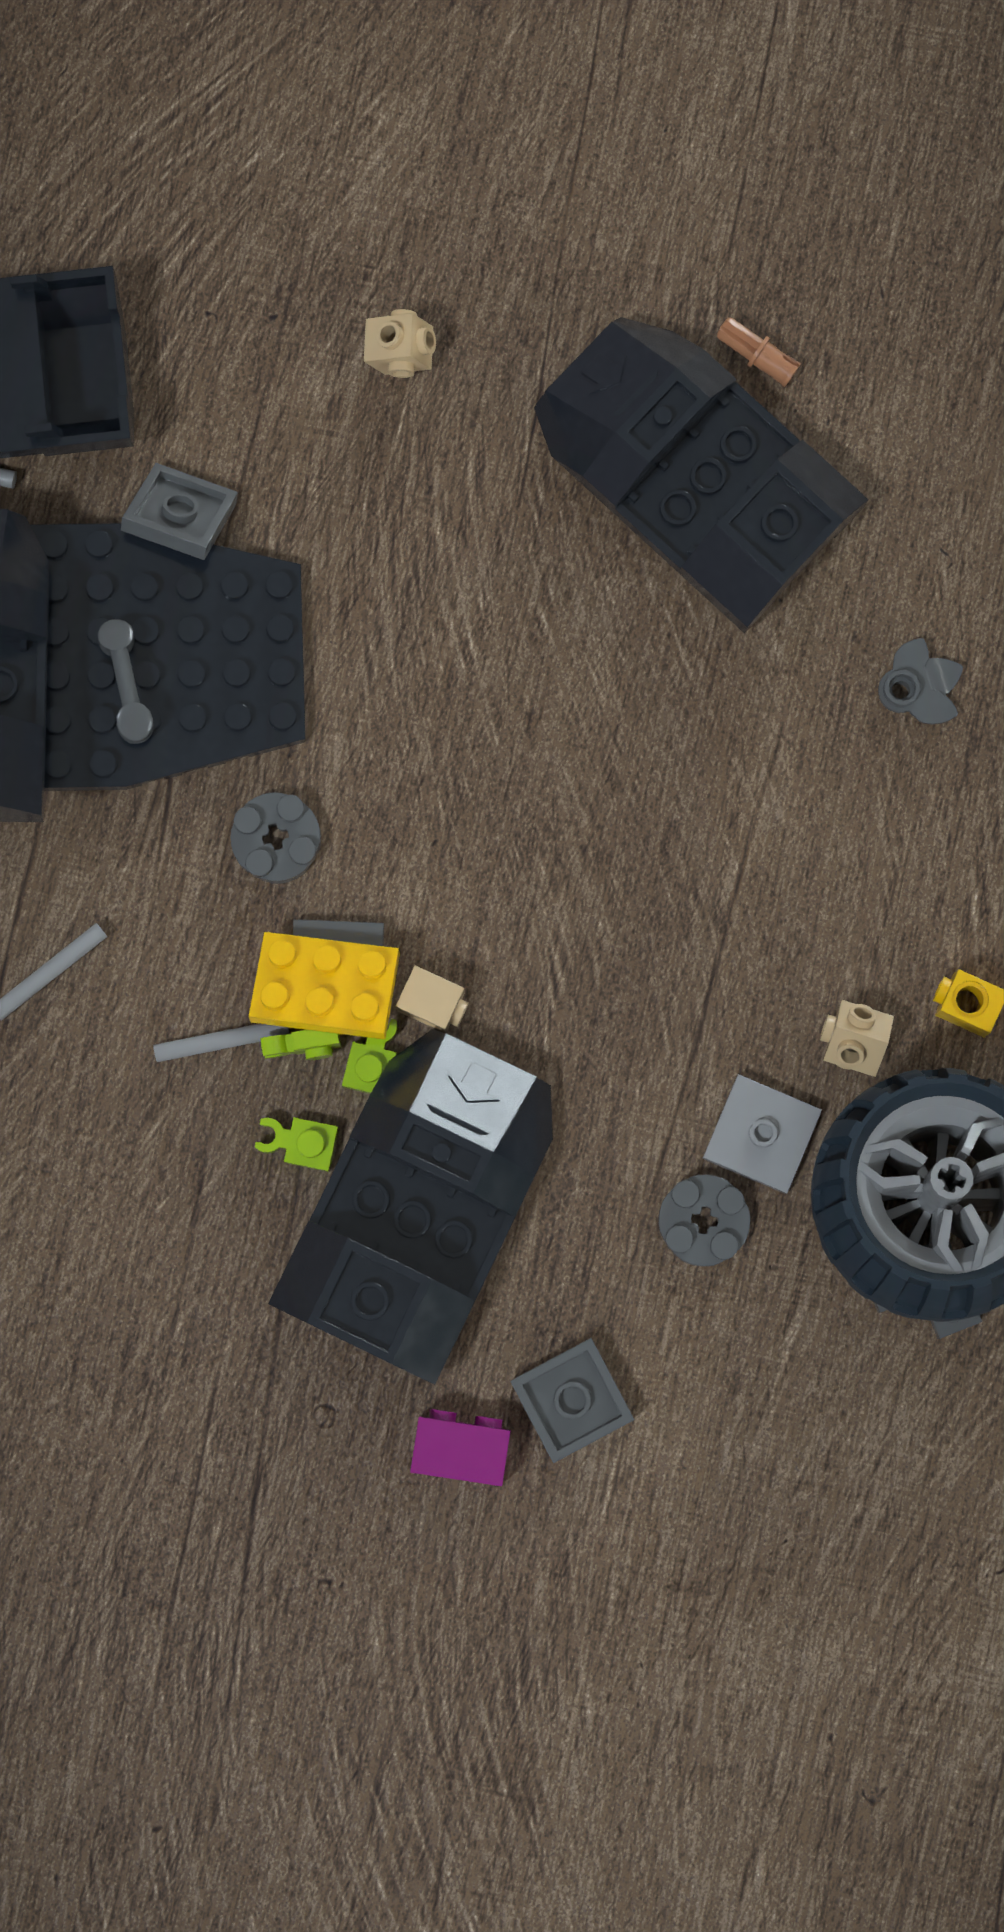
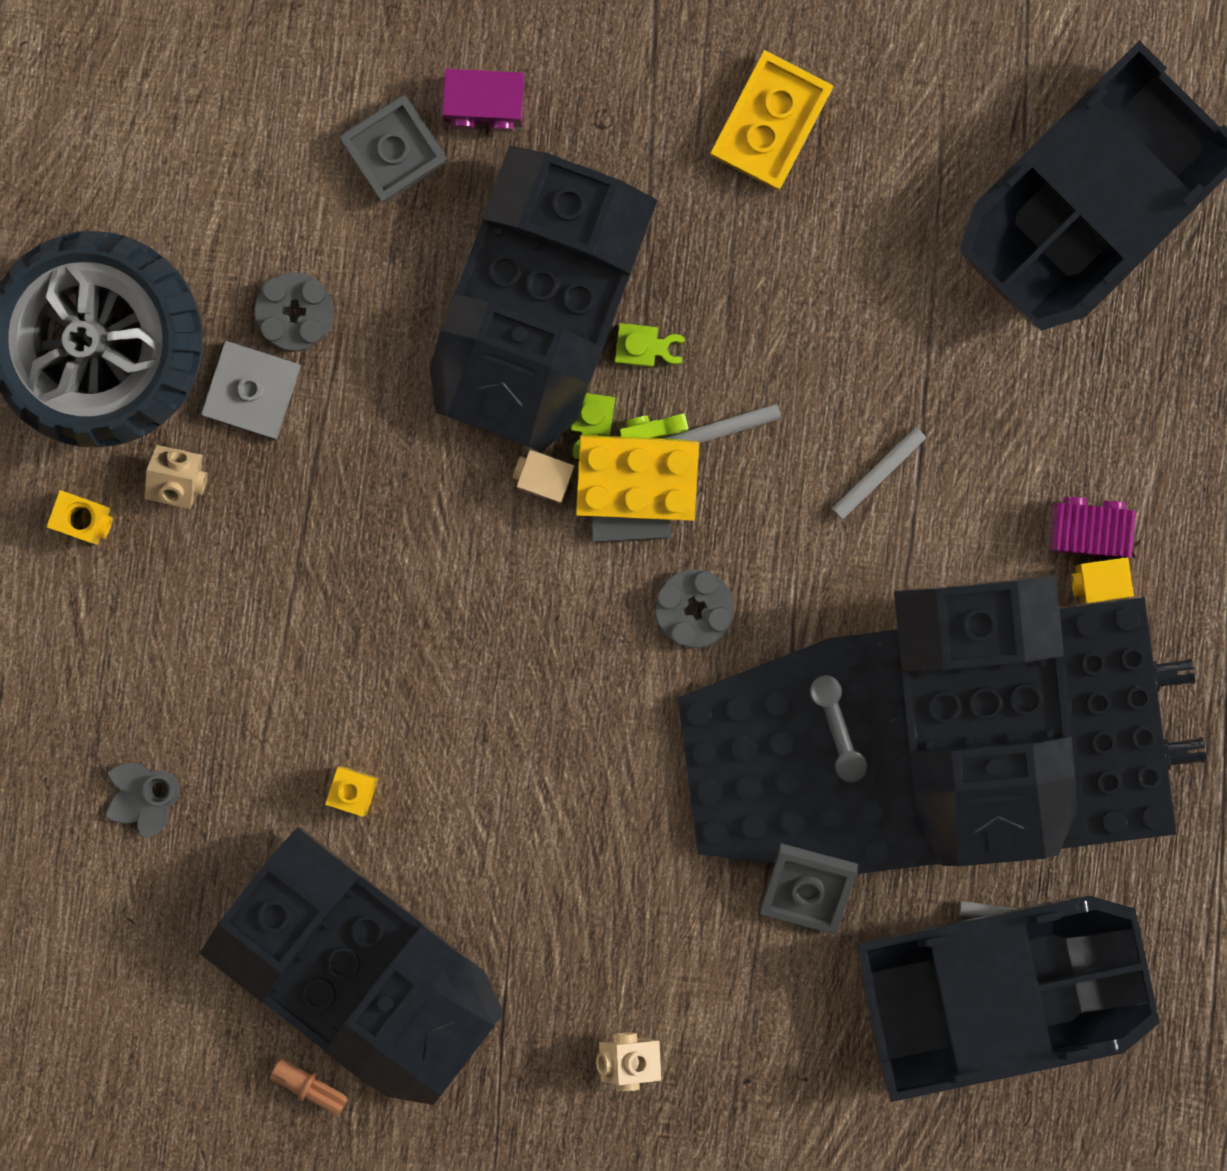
camera: 175 degrees right, 5 degrees up
(126, 1392) = (771, 120): none -> yellow plate
(682, 666) = (352, 791): none -> yellow brick

